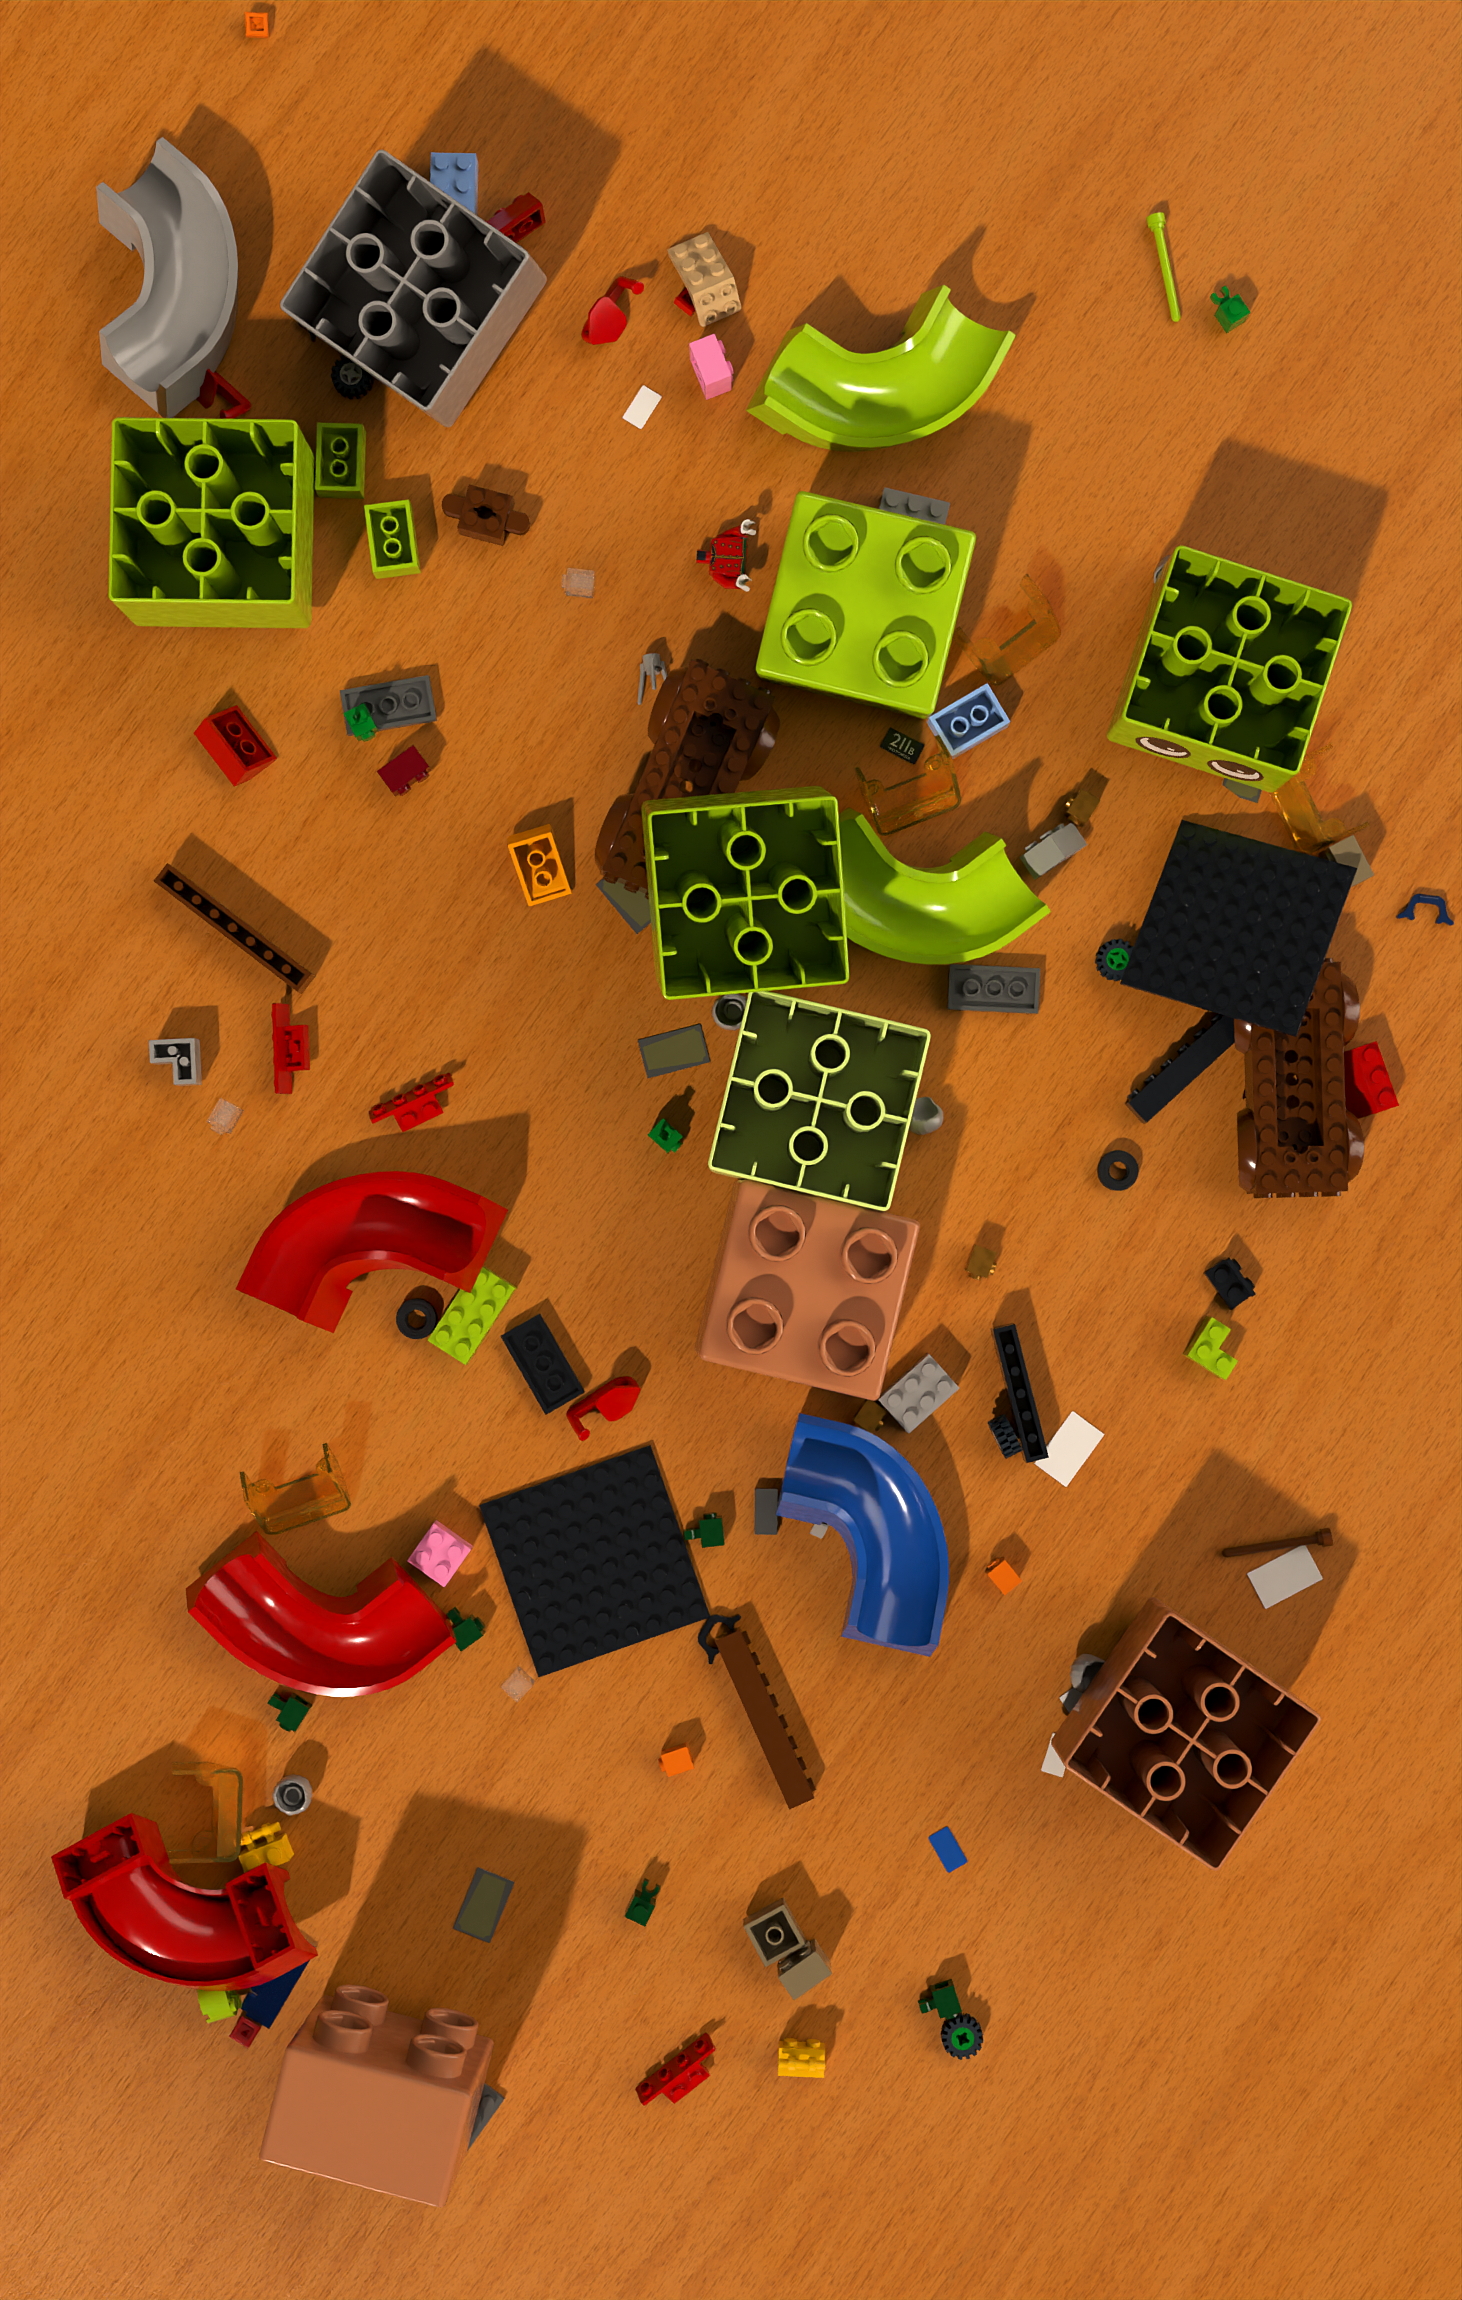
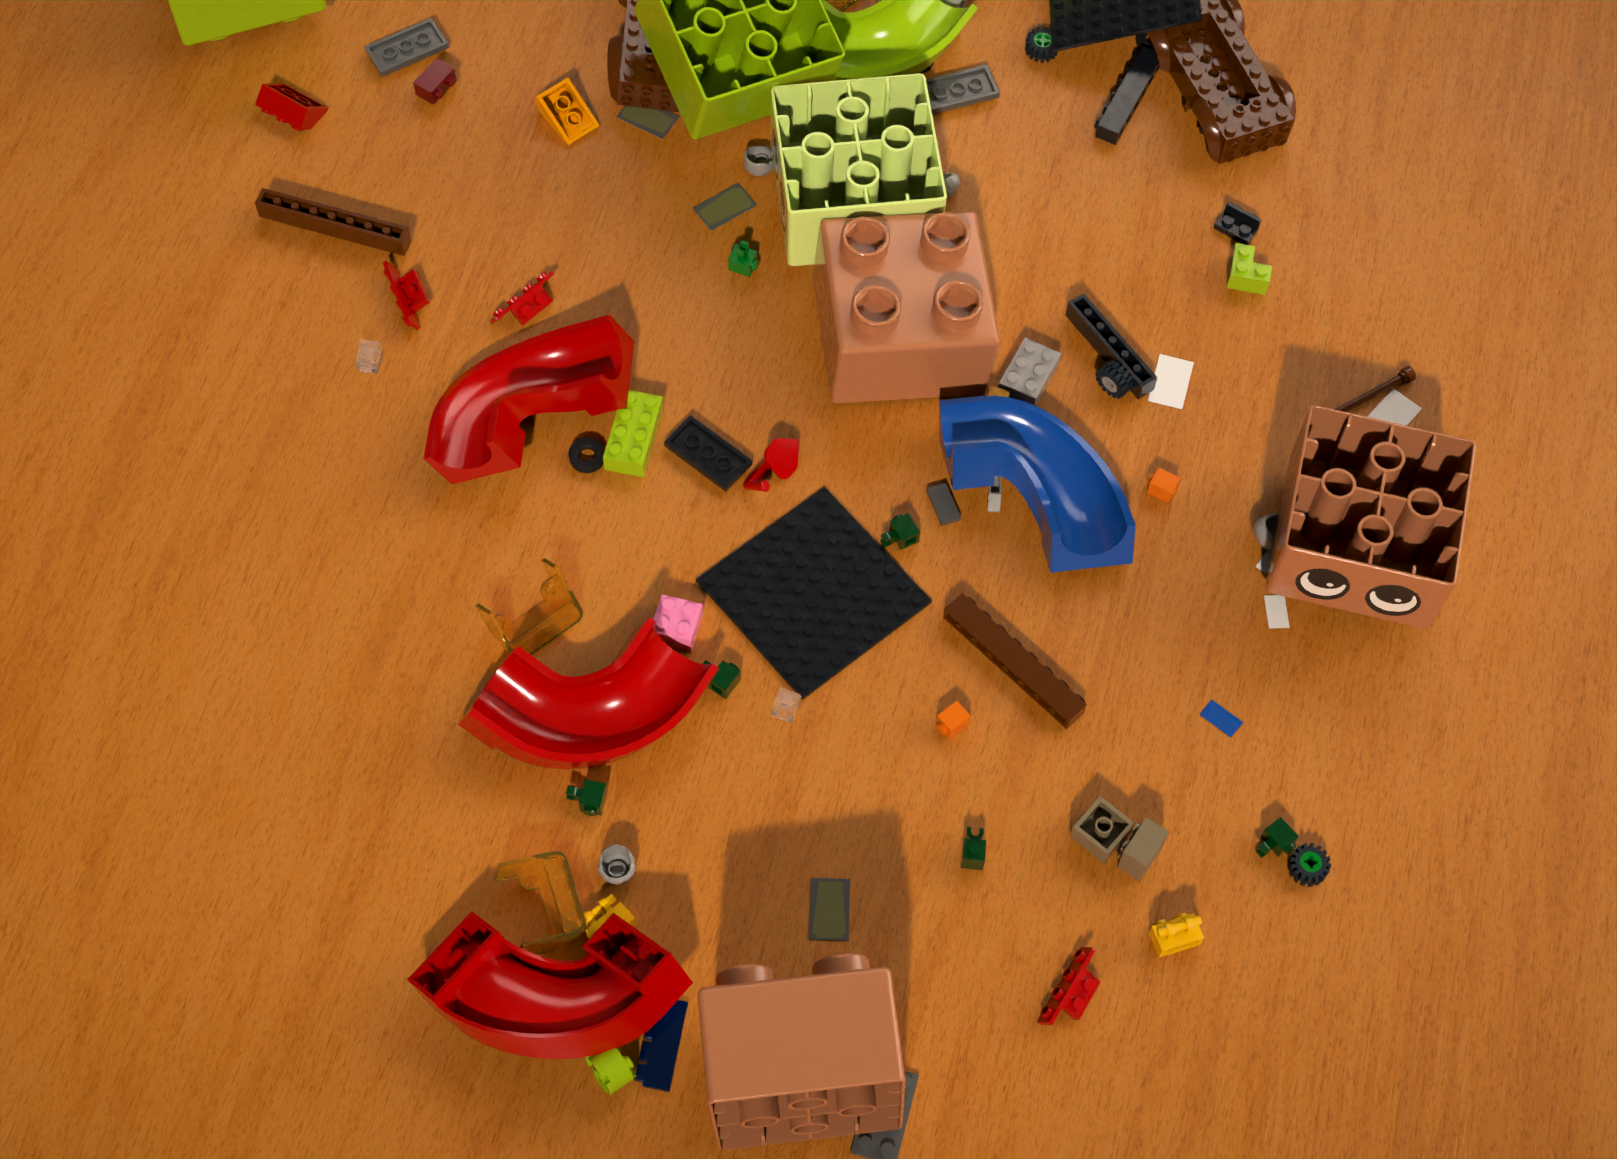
camera: 20 degrees left, 25 degrees down
(184, 1056) = (315, 320): light grey brick -> none
(244, 2032) = (647, 1100): red tile -> none
(361, 723) = (389, 55): green brick -> none
(707, 1627) = (943, 627): black helmet -> none
(980, 1263) = (1035, 269): pearl gold brick -> none
(1131, 1167) = (1112, 168): black tyre -> none
(1367, 1081) = (1274, 57): red slope -> none

